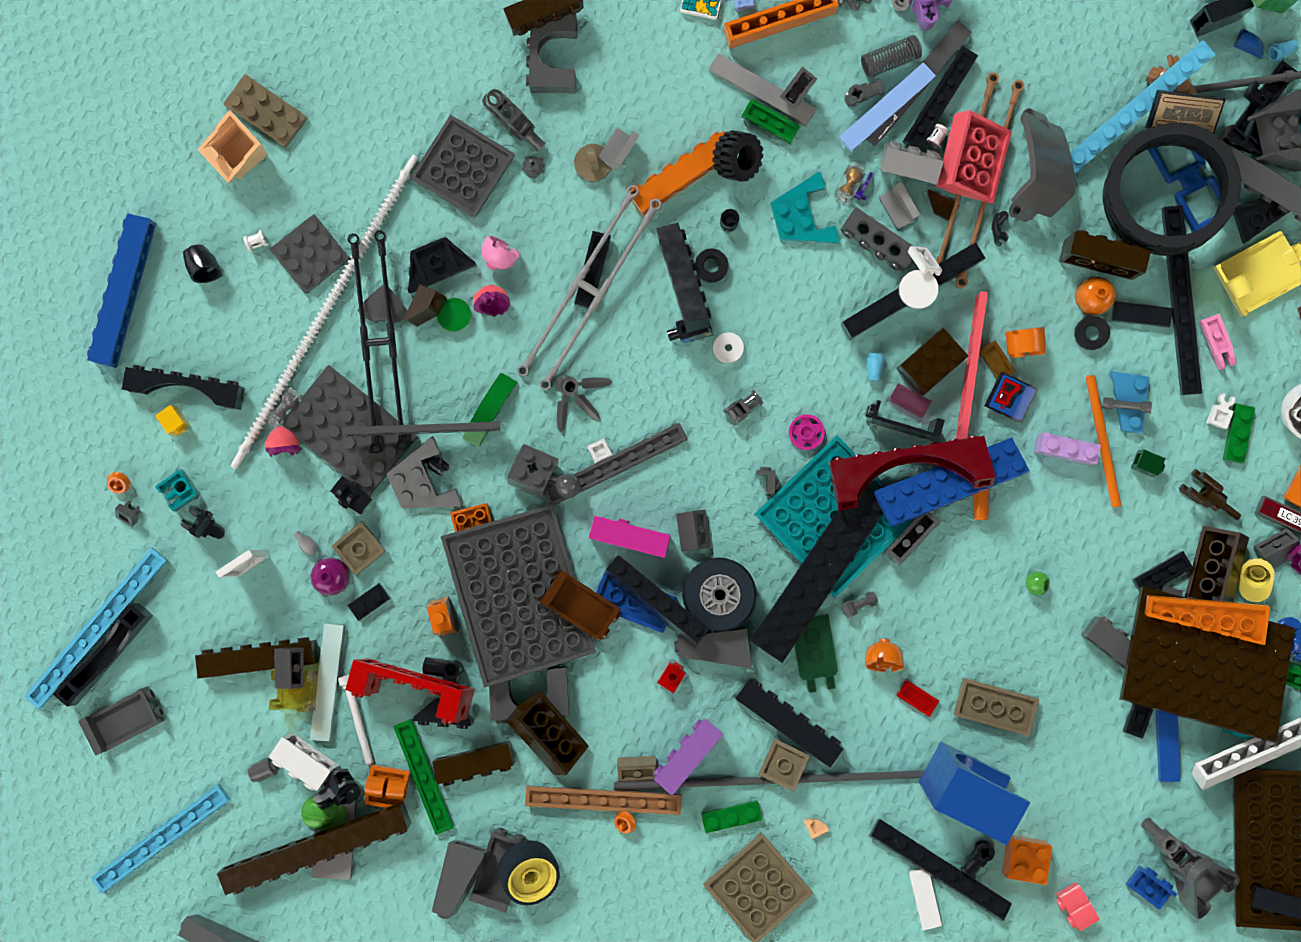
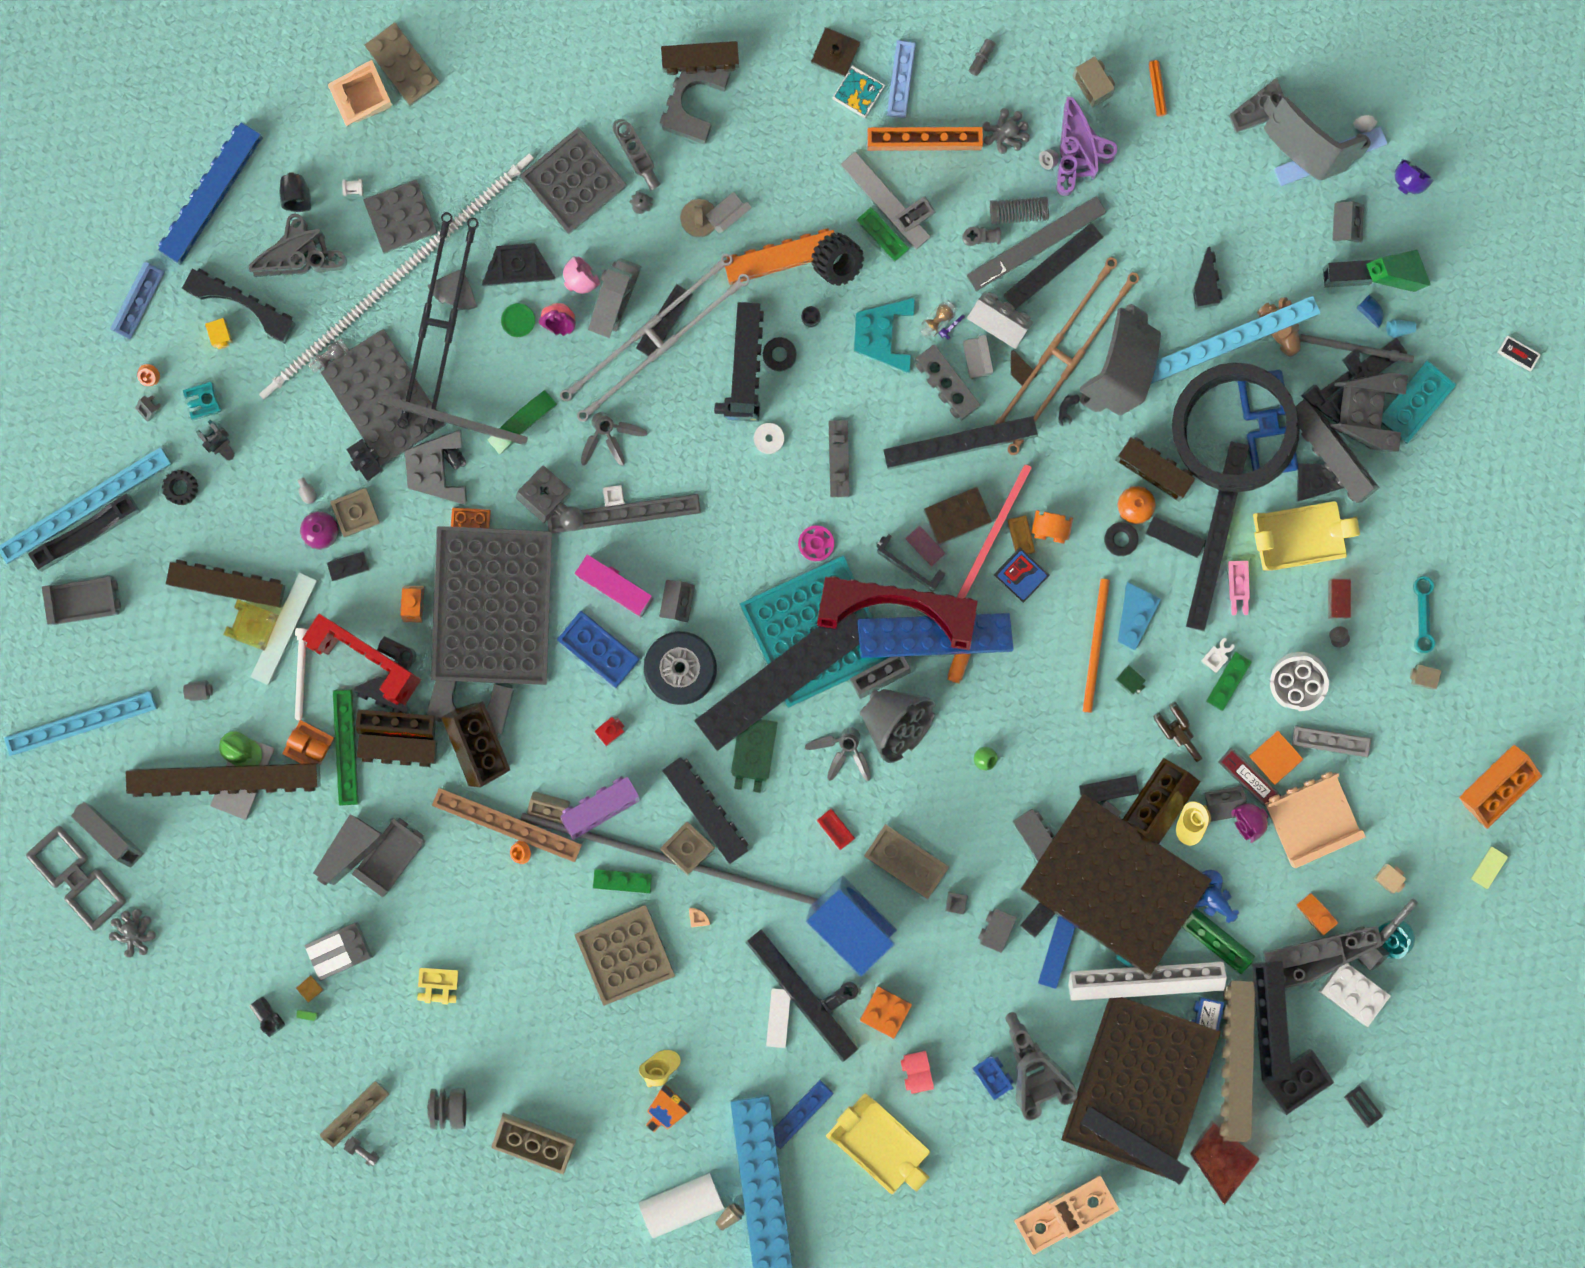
camera: 20 degrees right, 0 degrees up
(86, 415) = (137, 300): none -> medium blue slope
(171, 579) = (191, 487): none -> black tyre
(218, 316) = (291, 248): none -> dark grey piece
(242, 563) = (244, 490): white tile -> none
(281, 441) = (316, 387): coral hair -> none
(289, 668) = (256, 601): dark grey brick -> none
(303, 761) = (239, 694): white brick -> none
(337, 790) = (263, 731): black hinge -> none
(424, 306) = (493, 303): dark brown slope -> none
(464, 740) = (395, 724): none -> dark brown brick
(528, 872) = (416, 879): wheel -> none
(537, 261) = (614, 296): none -> wedge
(580, 605) = (546, 635): reddish brown panel -> none
(656, 601) = (618, 654): black brick -> none
(719, 647) = (662, 717): dark grey slope -> none
(742, 408) = (761, 500): dark grey connector -> none
(771, 483) = (766, 580): dark grey bracket -> none
(800, 345) = (839, 459): none -> dark grey hinge
(850, 608) = (801, 723): dark grey bar -> none
(875, 365) = (903, 501): medium azure cone -> none
(884, 656) = (816, 778): orange cylinder -> none
(887, 107) = (998, 258): light blue tile -> none
(904, 612) = (848, 742): none -> dark grey plant
(918, 289) = (963, 442): white tile -> none
(924, 260) = (975, 417): white tile -> none
(937, 136) = (1038, 302): white bush -> none
(943, 576) = (897, 721): none -> dark grey cone
(974, 157) = (1064, 334): coral slope -> none
(1056, 730) = (956, 903): none -> dark grey panel
(1067, 448) = (1057, 641): lavender brick -> none
(1089, 69) = (1205, 287): none -> black slope
(1105, 744) = (997, 930): none -> dark grey brick
(1110, 403) = (1114, 611): dark grey bar -> none
(1185, 108) = (1280, 358): tile -> none
(1232, 619) = (1142, 844): orange wing -> none

